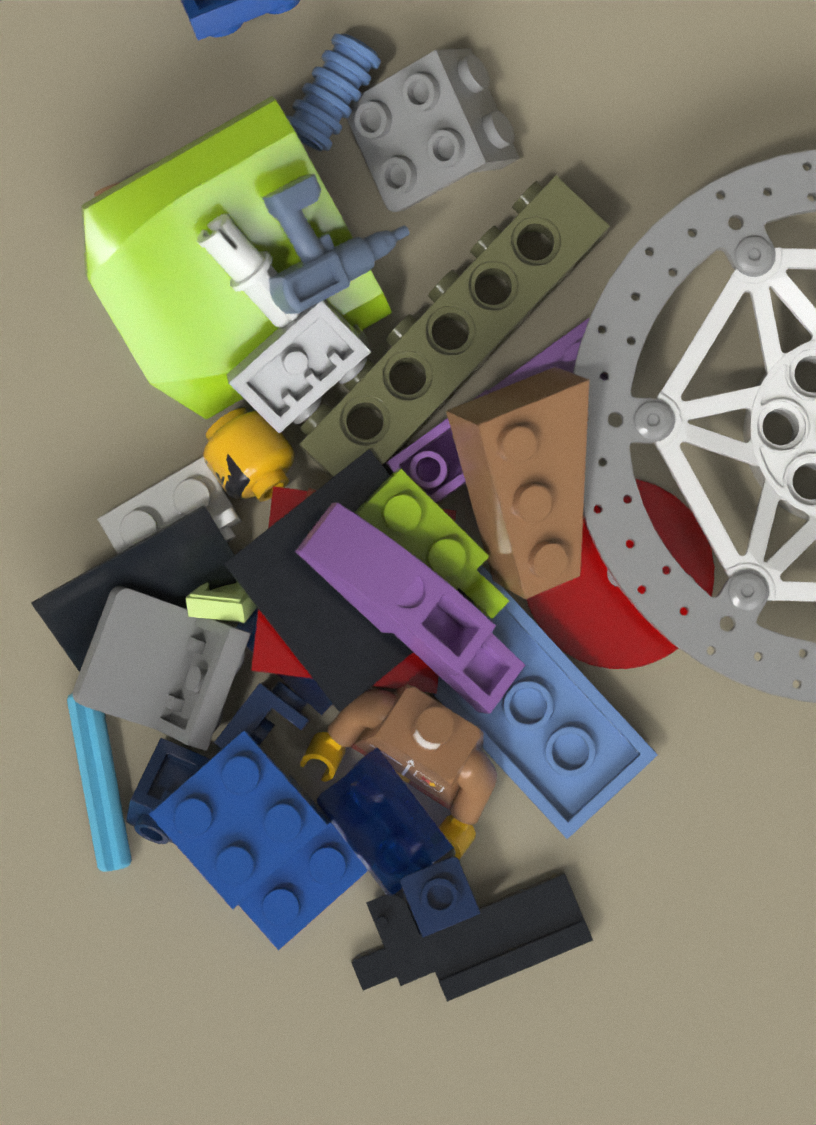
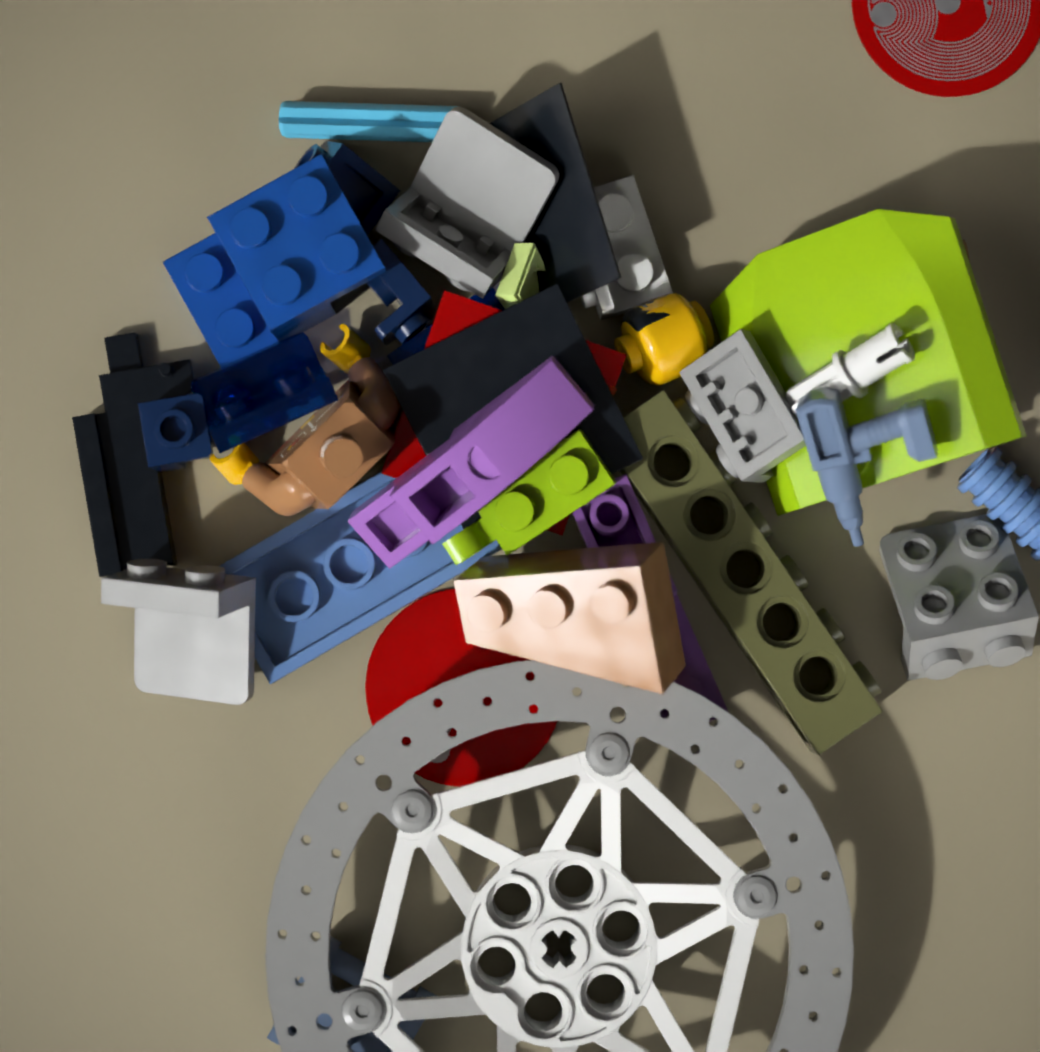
camera: 100 degrees right, 0 degrees up
(624, 842) = (189, 629): none -> bracket

